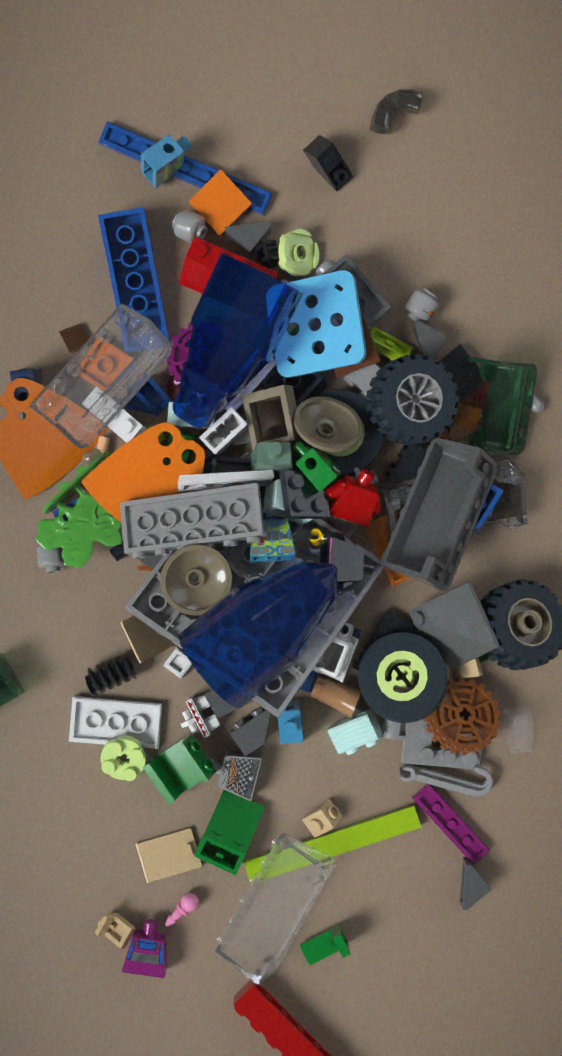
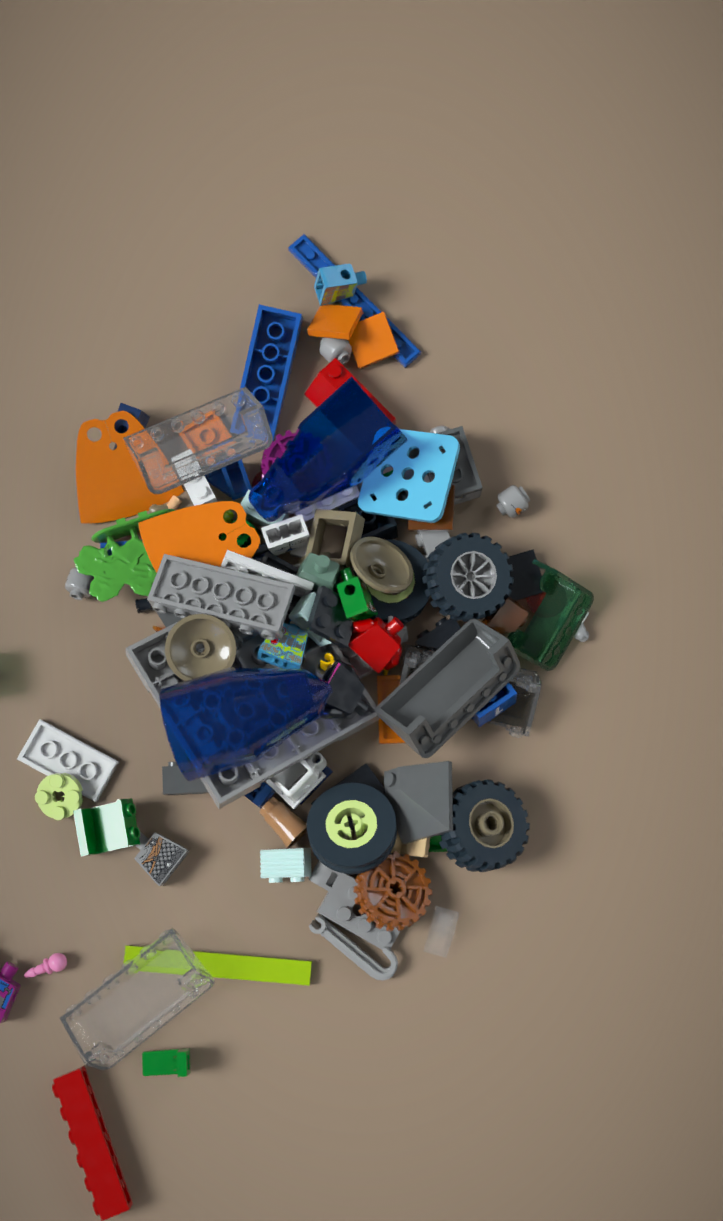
camera: 25 degrees right, 10 degrees down
(74, 337) = (190, 400): reddish brown slope -> none
(109, 675) = (82, 712): black piece -> none
(144, 639) = (131, 692): tan piece -> none
(168, 855) = (59, 908): tan container -> none
(177, 199) = (335, 321): none -> orange tile
(178, 663) = (151, 730): white tile -> none
(196, 706) = (149, 797): white hips -> none
(229, 832) = (126, 908): green slope -> none
(248, 235) = (384, 378): dark grey slope -> none
(251, 733) = (190, 824): dark grey slope -> none
(267, 253) = (395, 400): black gear -> none
(288, 255) = (410, 410): yellowish green plate -> none
(291, 724) = (228, 829): dark azure torso -> none
(322, 819) = (219, 935): tan bracket -> none
(328, 162) = (481, 345): black slope -> none
(389, 345) = (467, 522): lime plate -> none
(393, 104) = (558, 321): clear smoke cylinder -> none
(428, 339) = (507, 533): dark grey slope -> none
(451, 823) = (339, 995): magenta tile -> none
(472, 885) = (334, 1065): dark grey slope -> none

